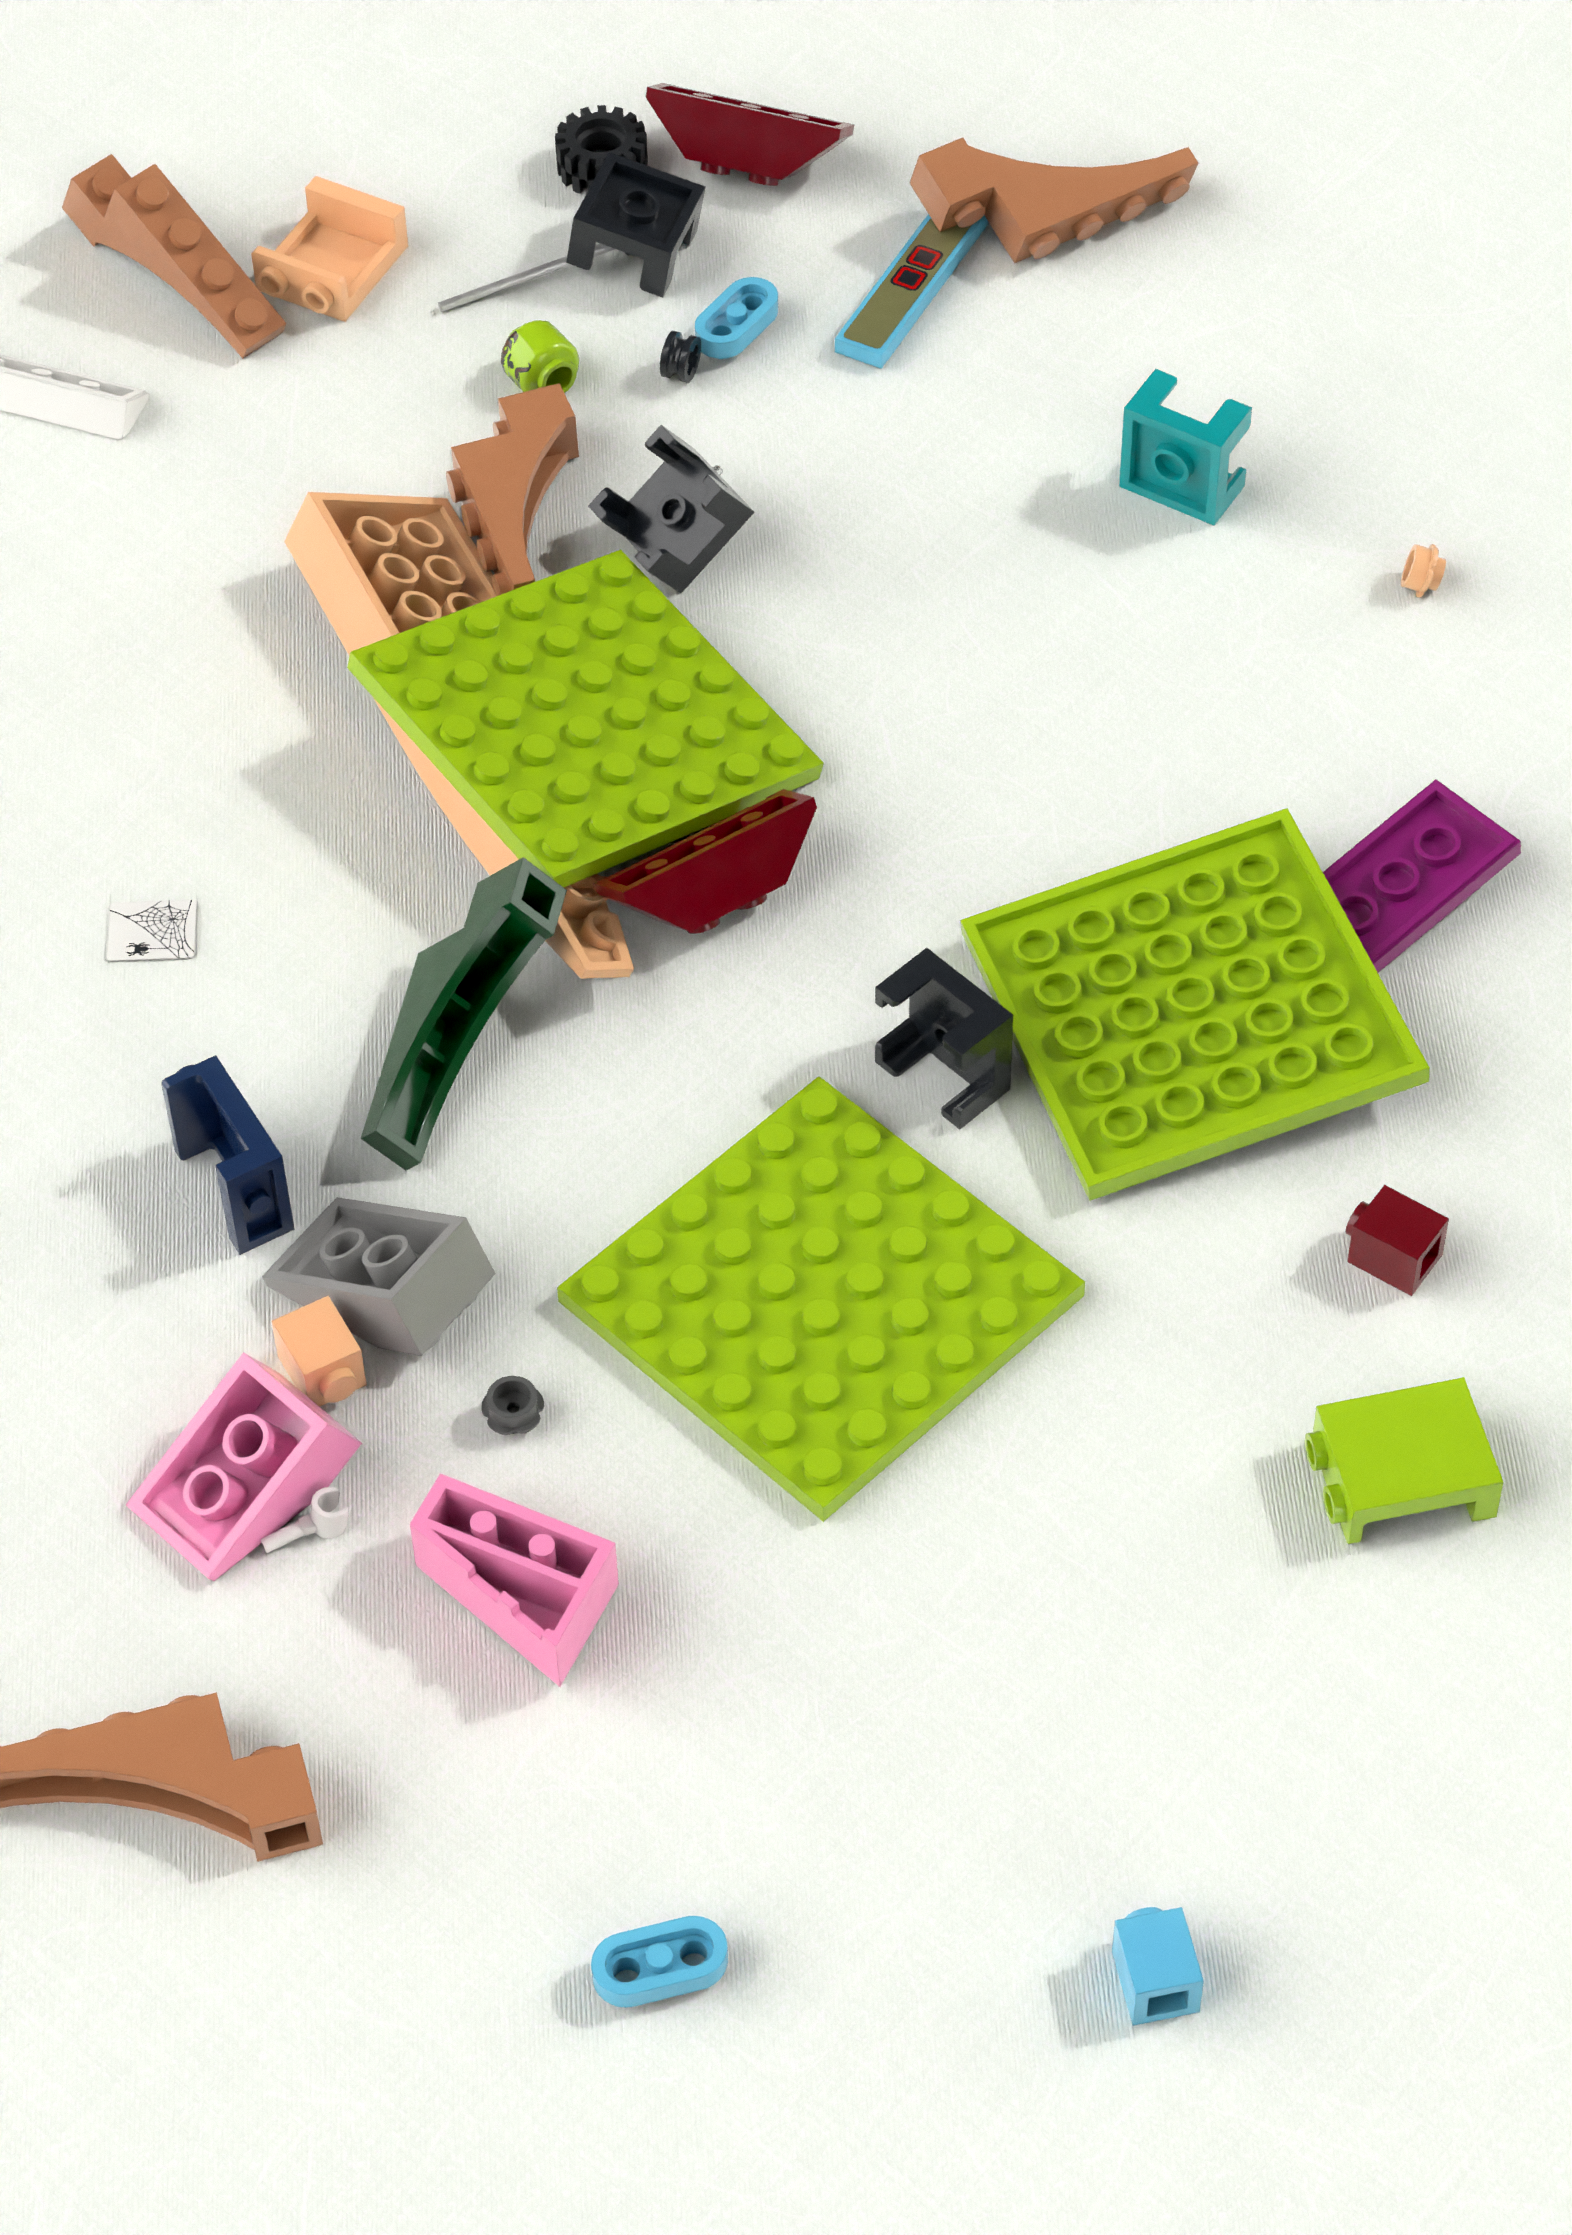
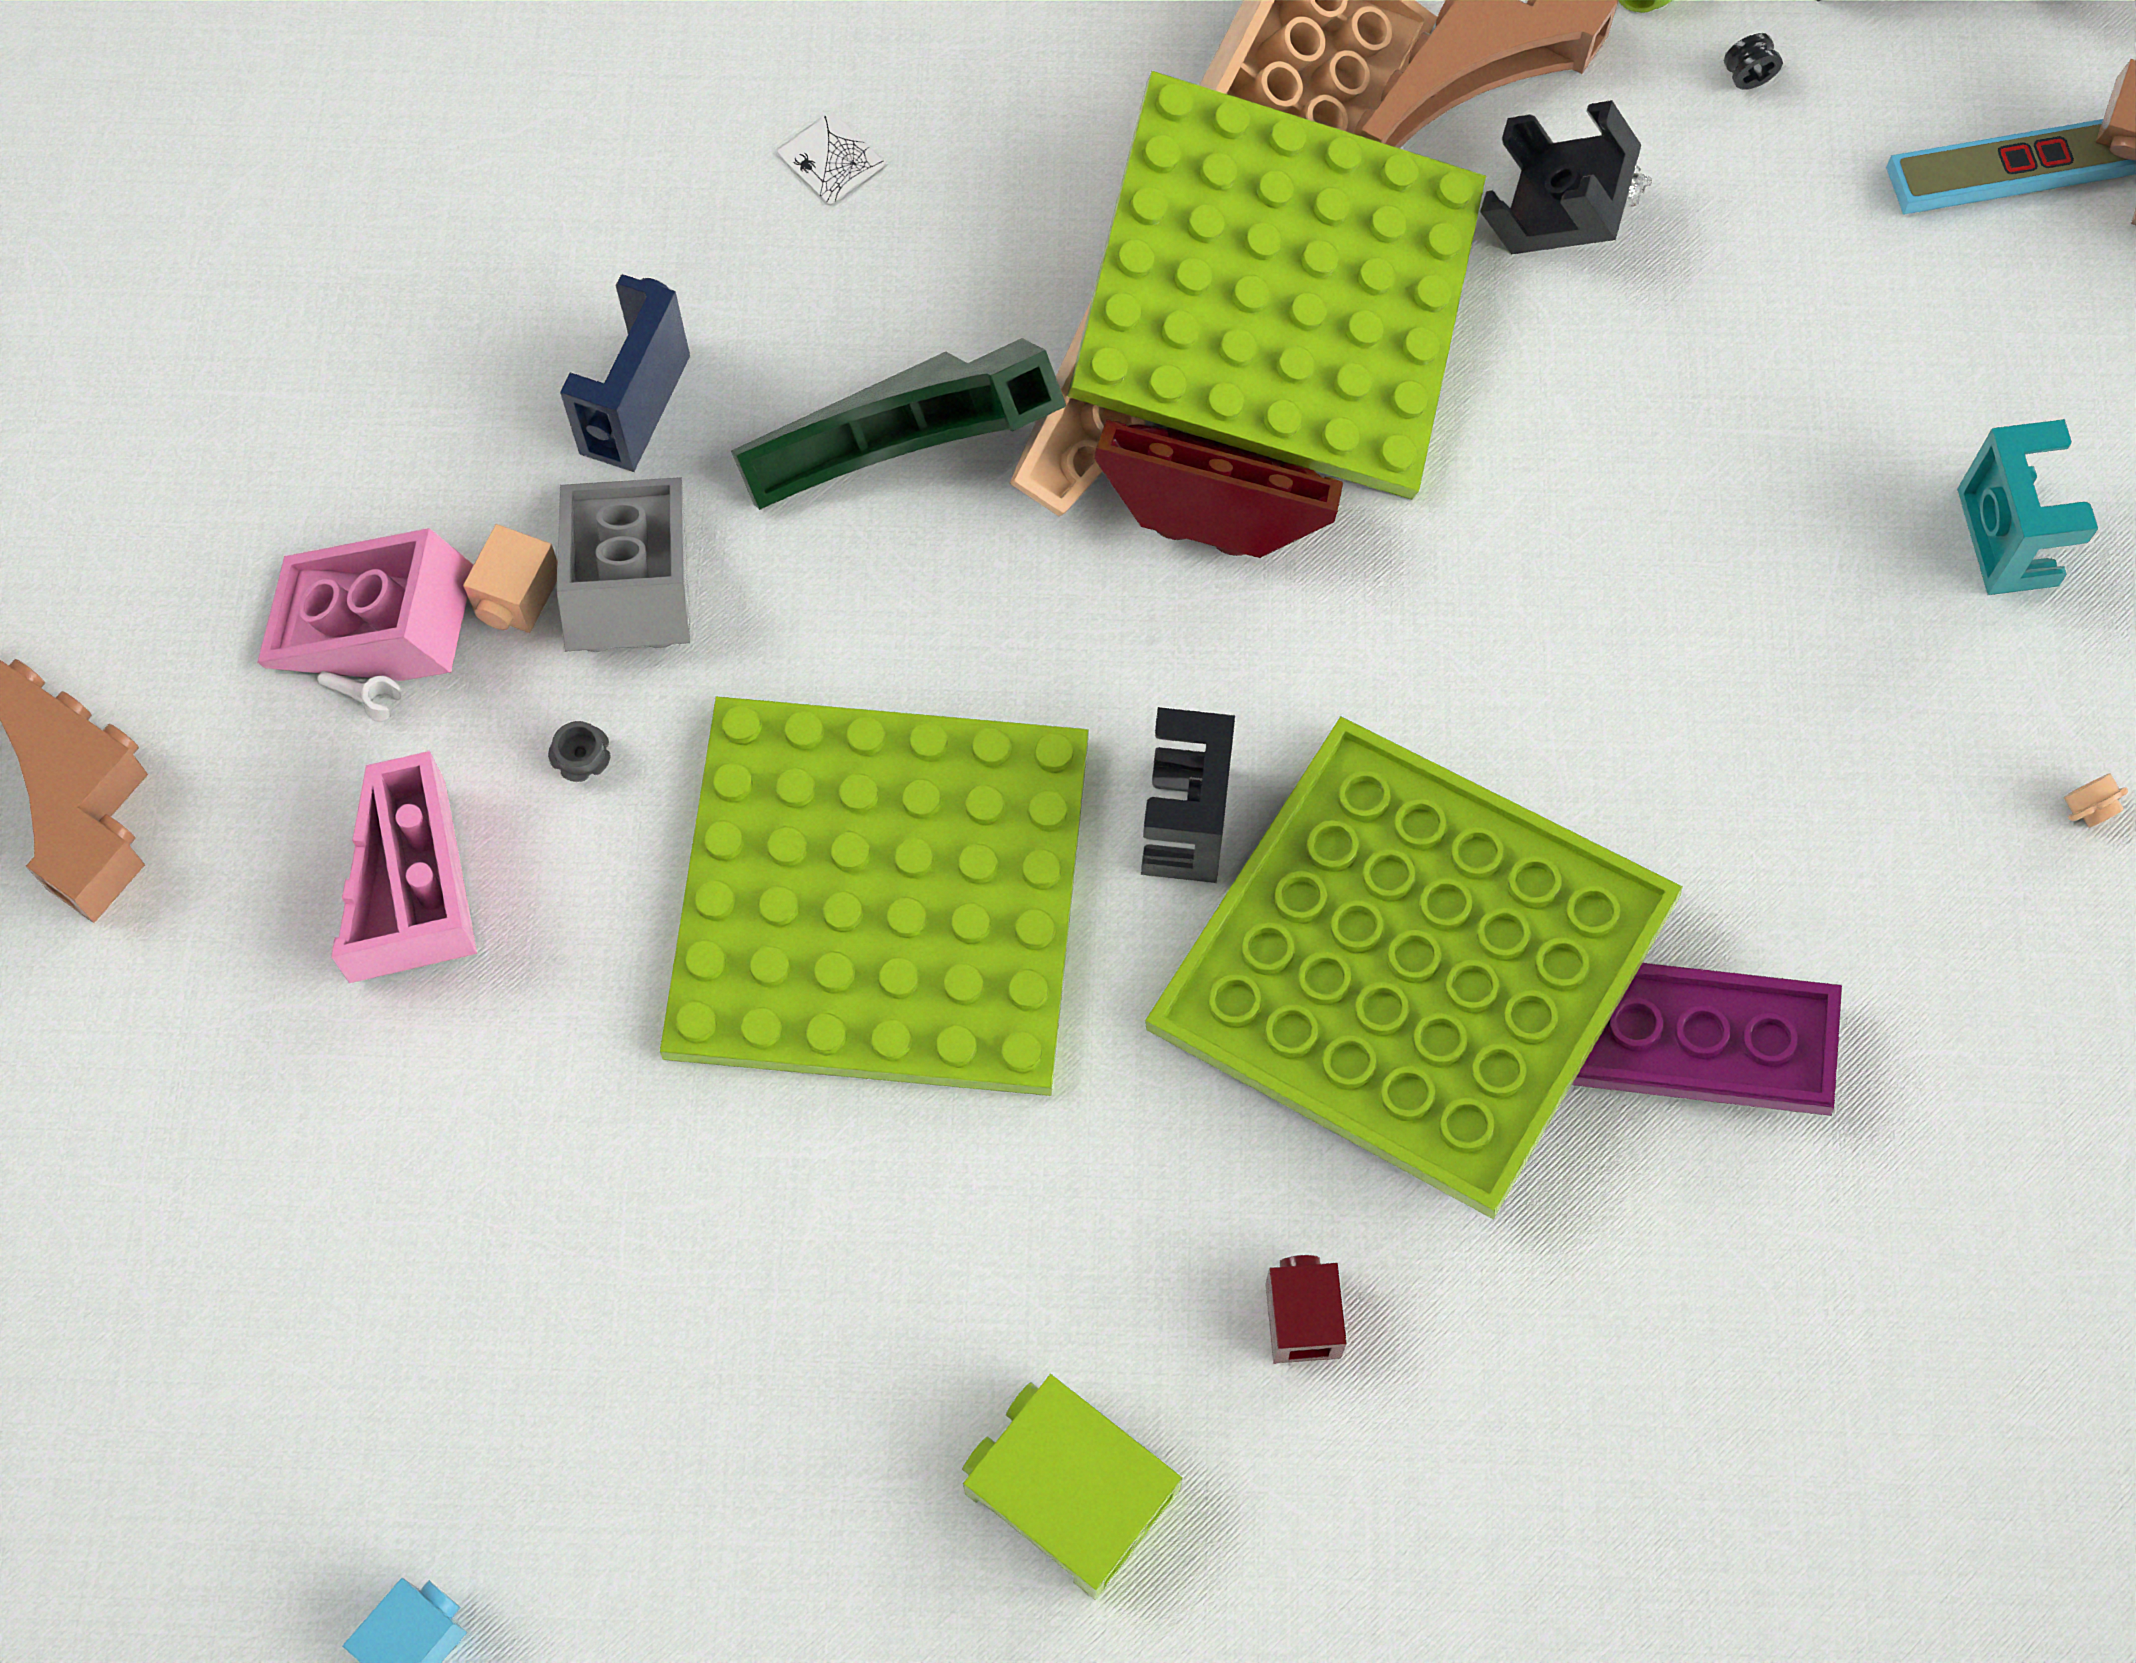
camera: 50 degrees right, 15 degrees up
(657, 1958) = (147, 1247): medium azure plate -> none
(737, 317) = (1836, 68): medium azure plate -> none

